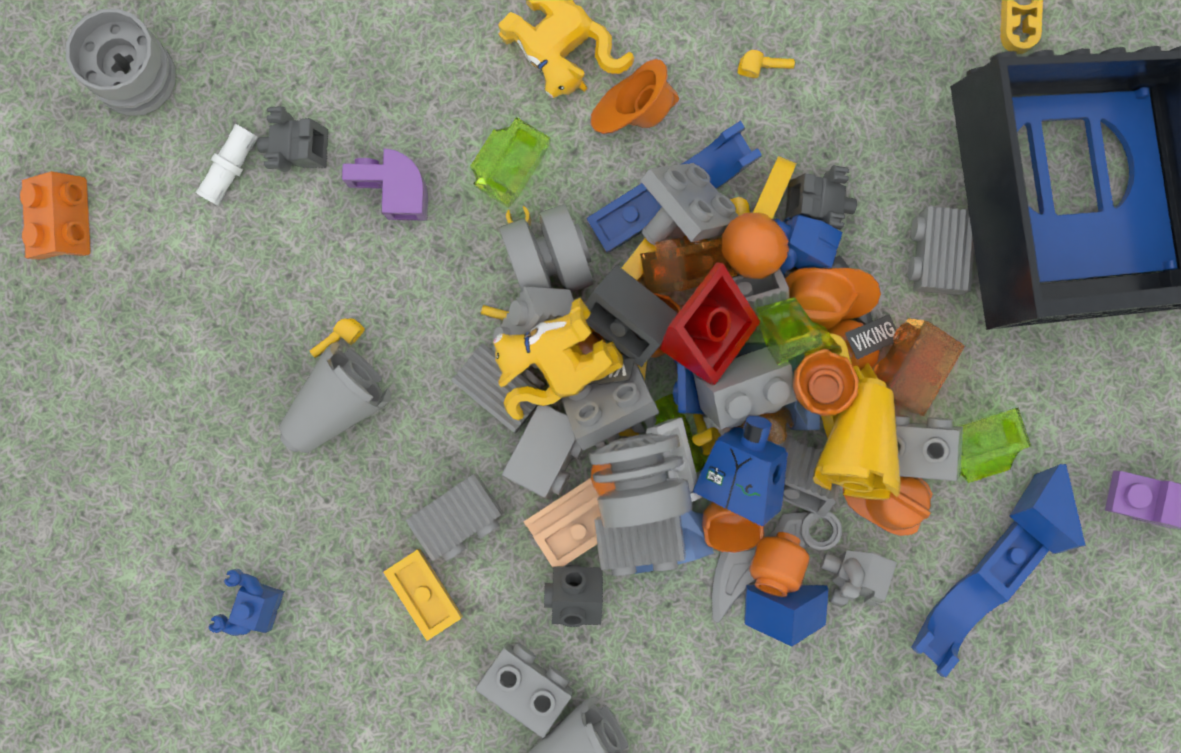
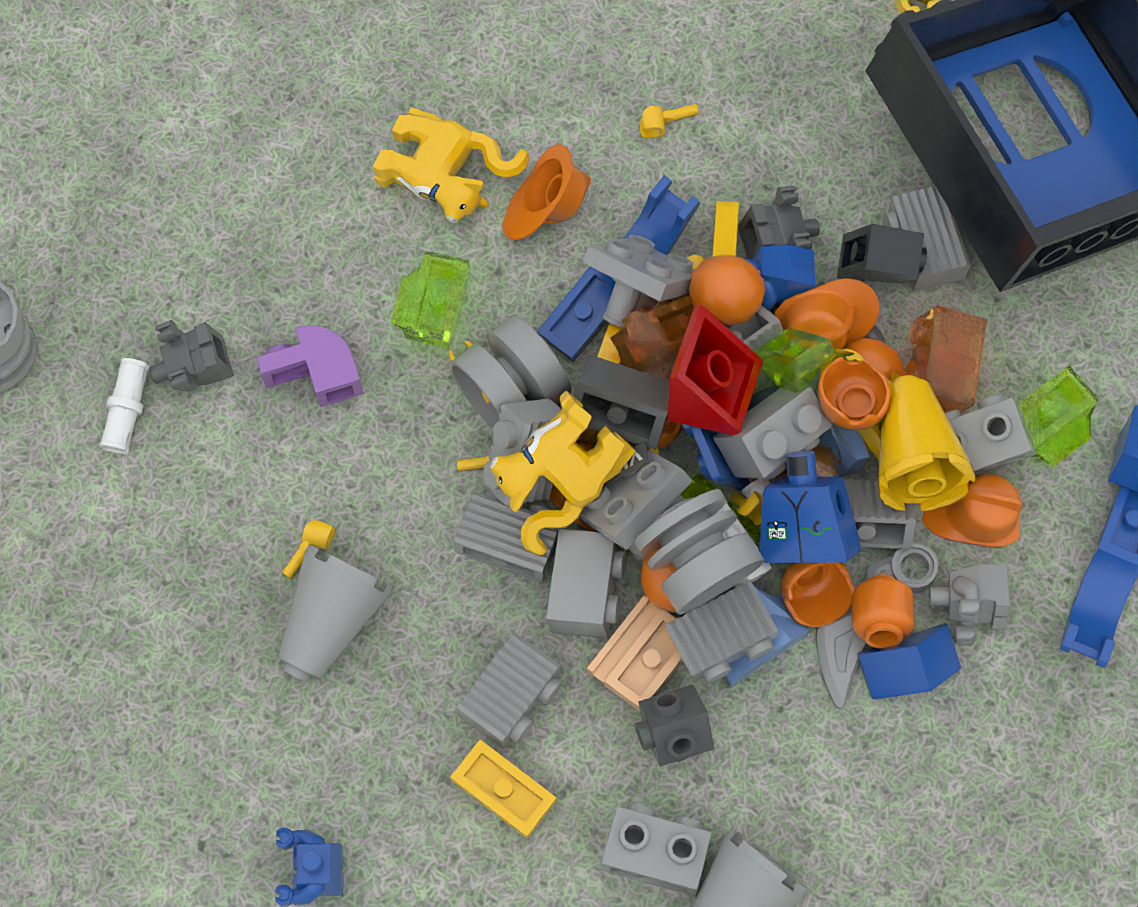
camera: 20 degrees left, 15 degrees down
(871, 336) = (887, 345): dark grey sticker -> none
(898, 257) = (882, 254): none -> black slope

